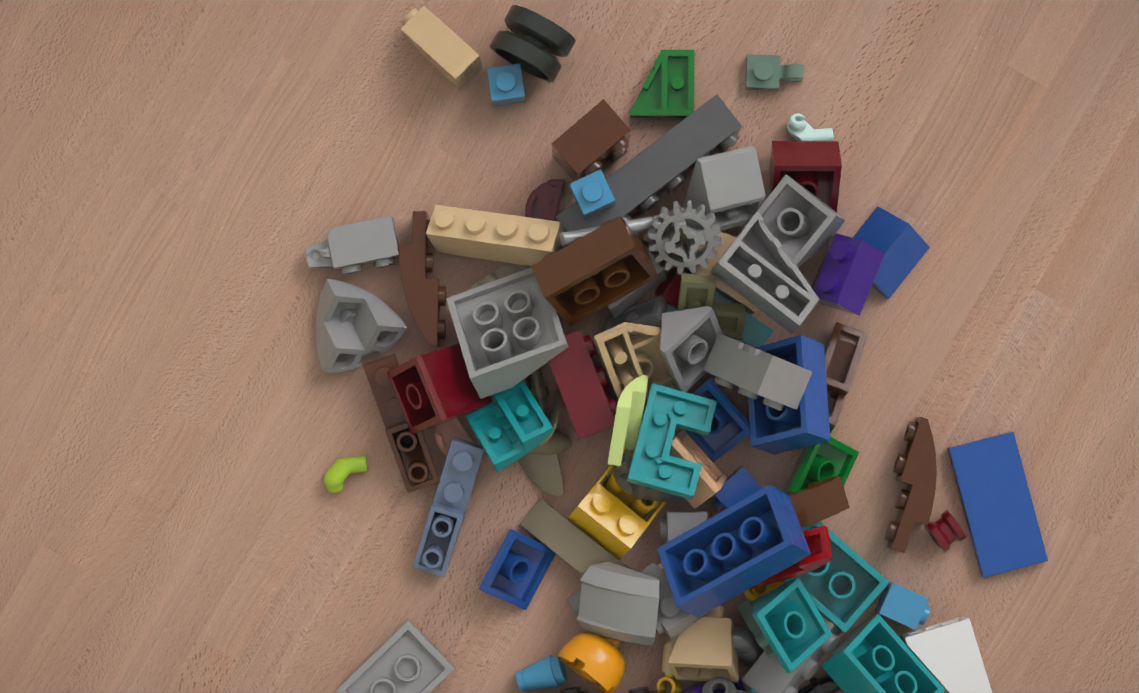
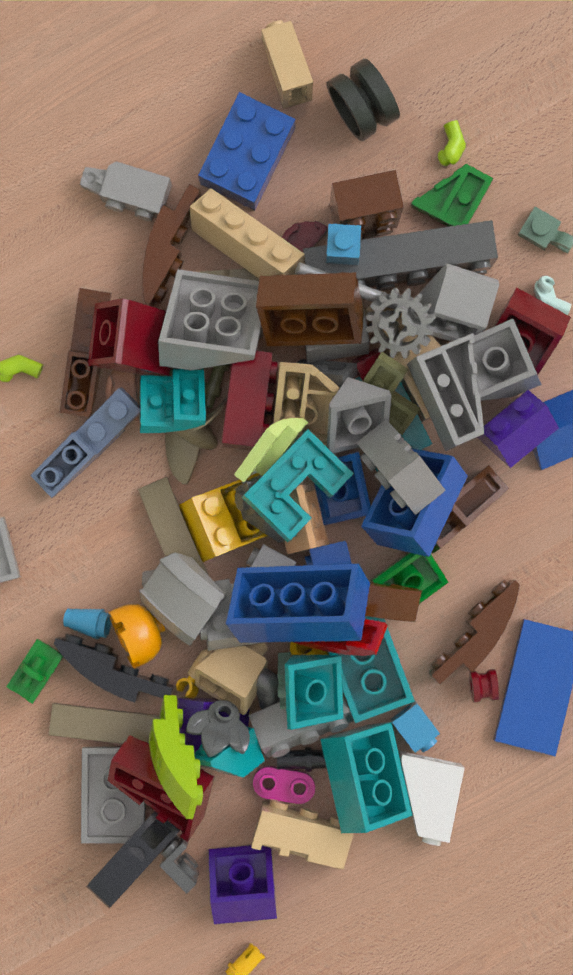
camera: 25 degrees right, 0 degrees up
(353, 326) = (89, 252): light grey brick -> none
(449, 150) = (247, 151): none -> blue brick
(506, 85) = (323, 123): dark azure brick -> none
(517, 569) = (114, 523): blue slope -> none
(641, 38) = (455, 145): none -> lime arm

